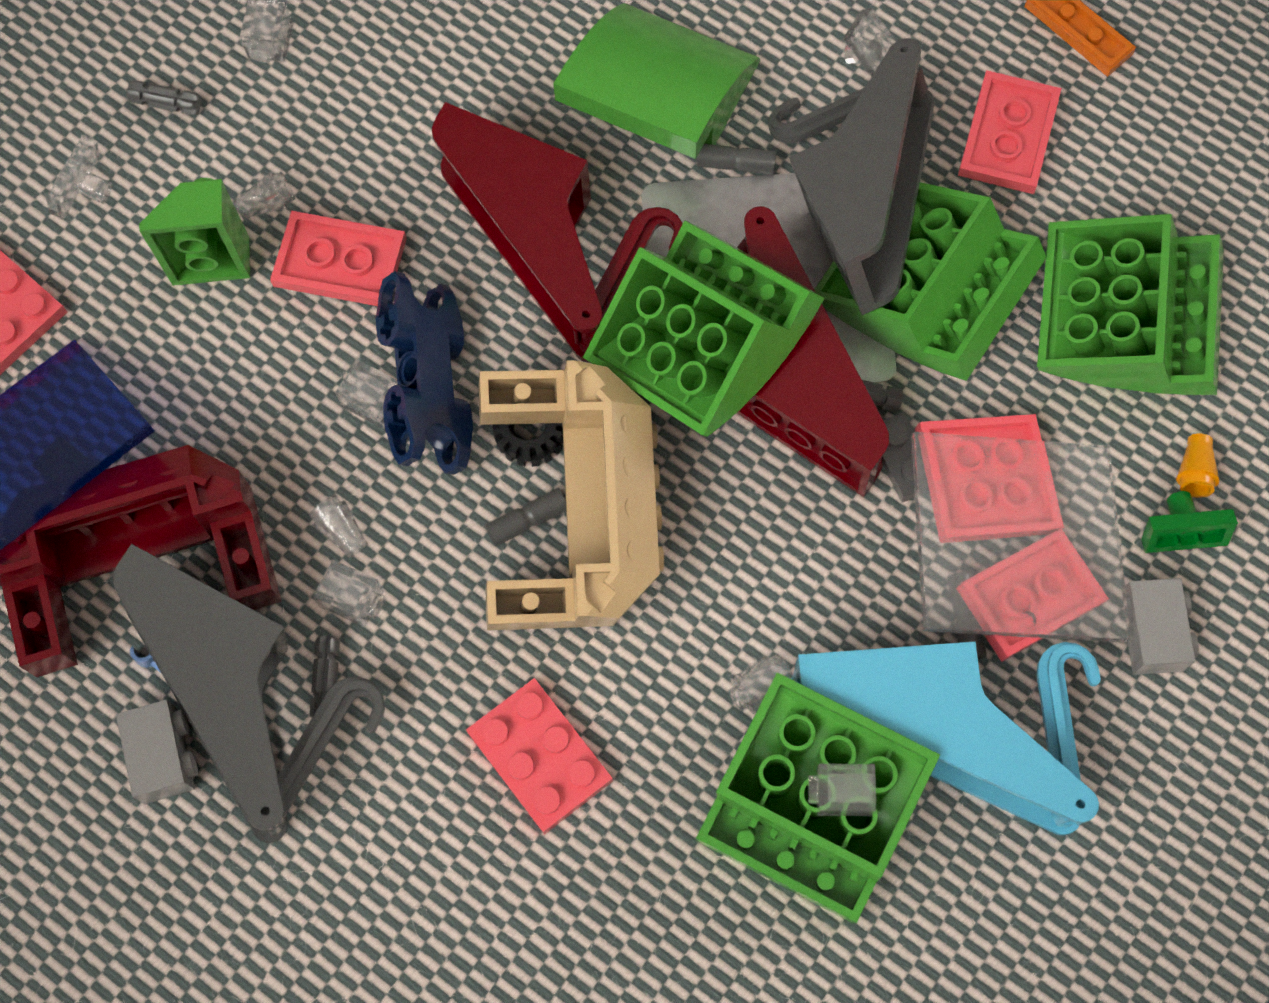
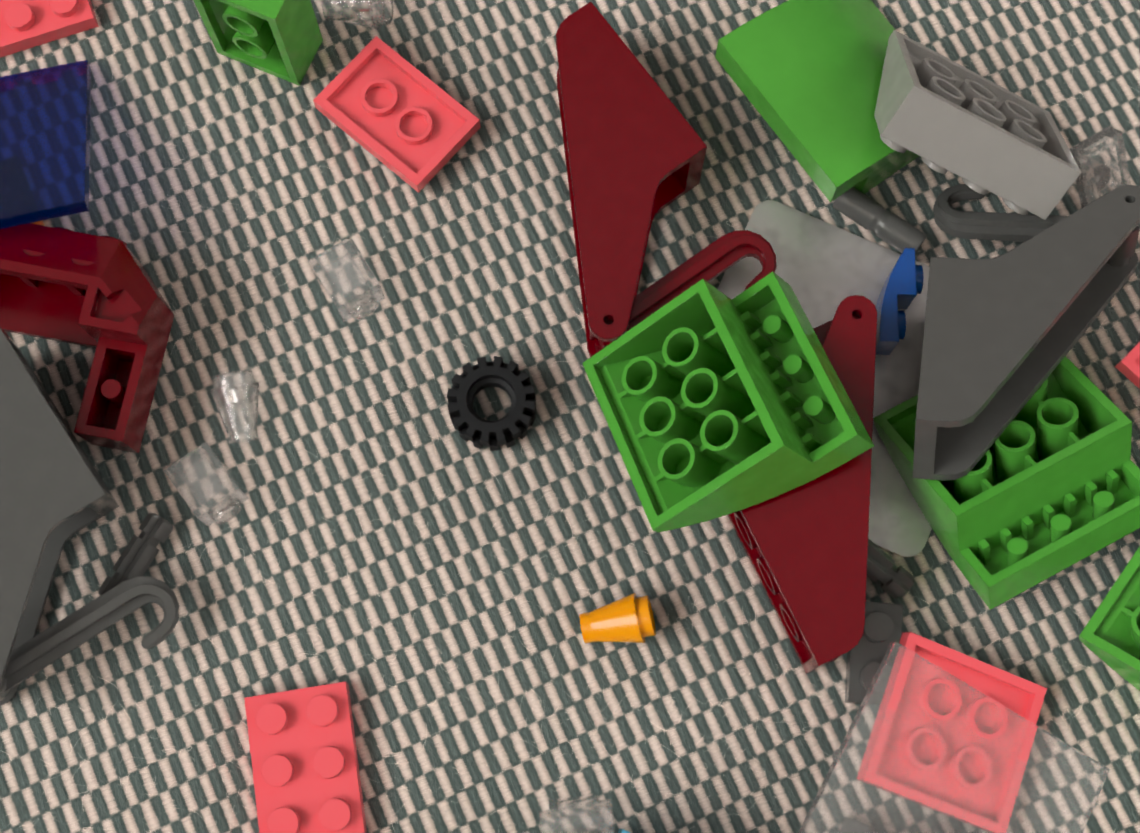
camera: 25 degrees right, 5 degrees up
(424, 399) = (397, 316): dark blue piece -> none
(523, 518) = (430, 500): dark grey piece -> none
(606, 489) = (524, 532): tan wedge -> none
(711, 528) = (620, 621): none -> light orange cone
(767, 59) = (972, 128): none -> light grey slope
(778, 198) = (897, 293): none -> blue slope

